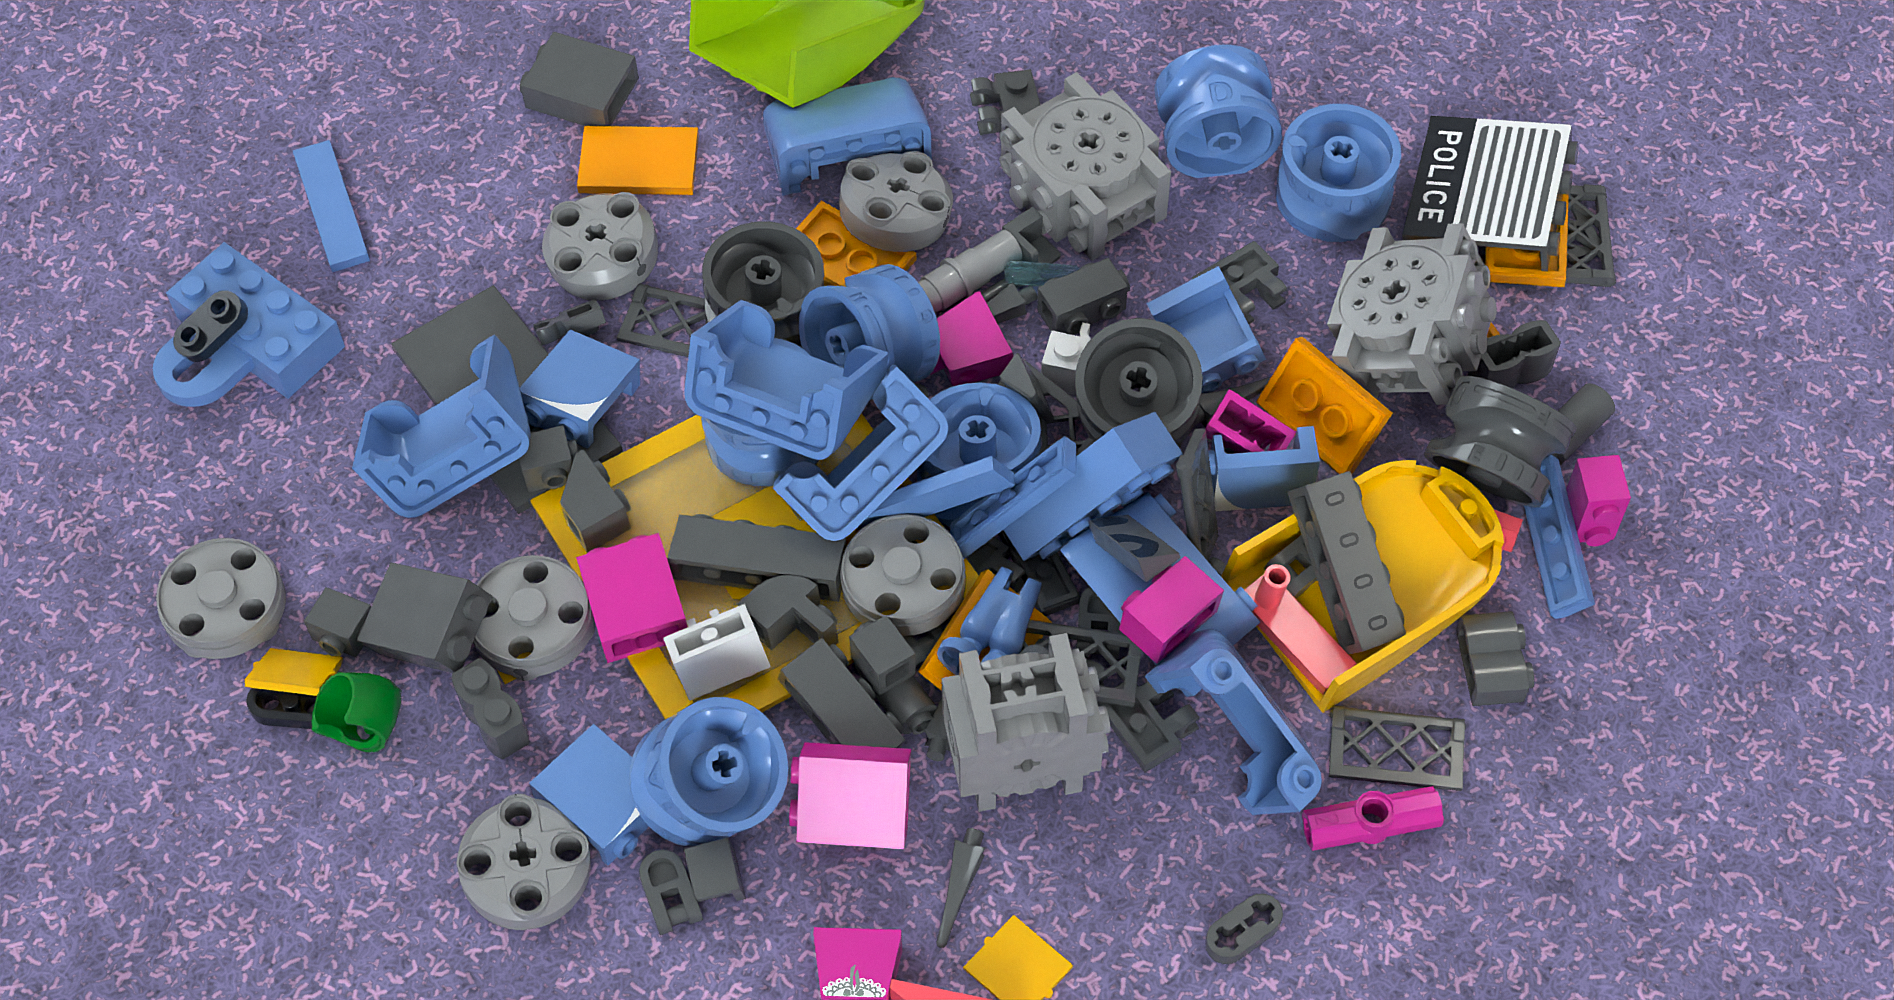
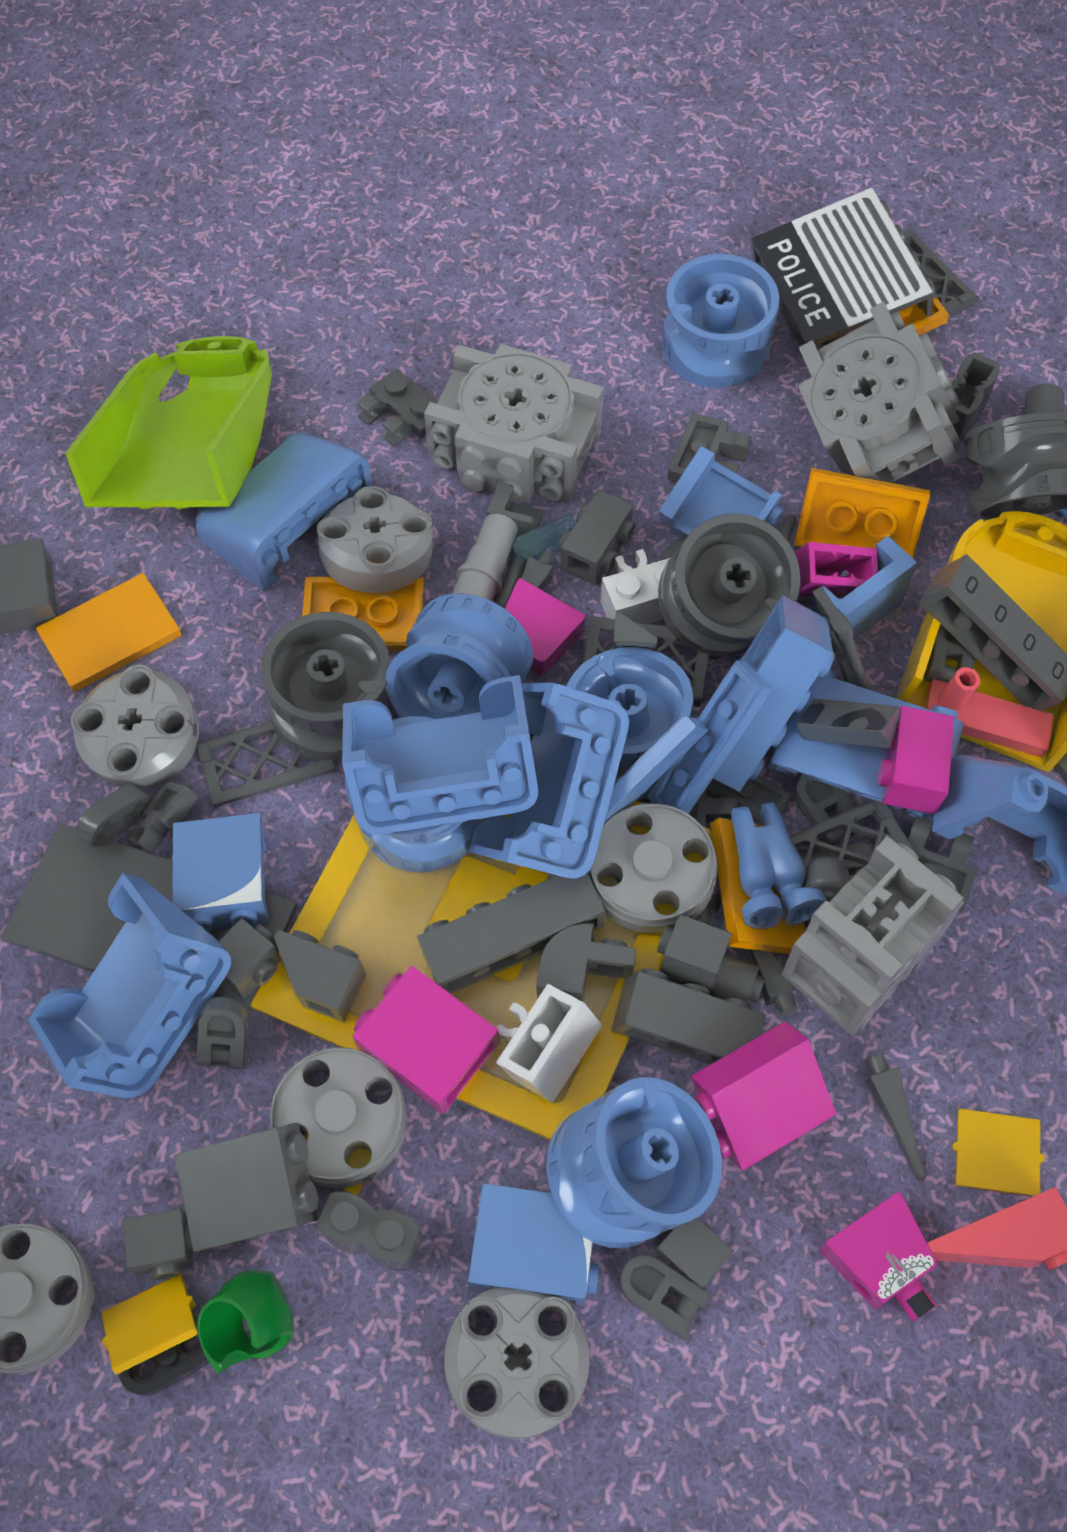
camera: 35 degrees left, 5 degrees up
(491, 504) = (222, 1033): none -> dark grey plate
(533, 299) = (112, 814): none -> dark grey beam
(1217, 111) = (593, 317): medium blue piece -> none

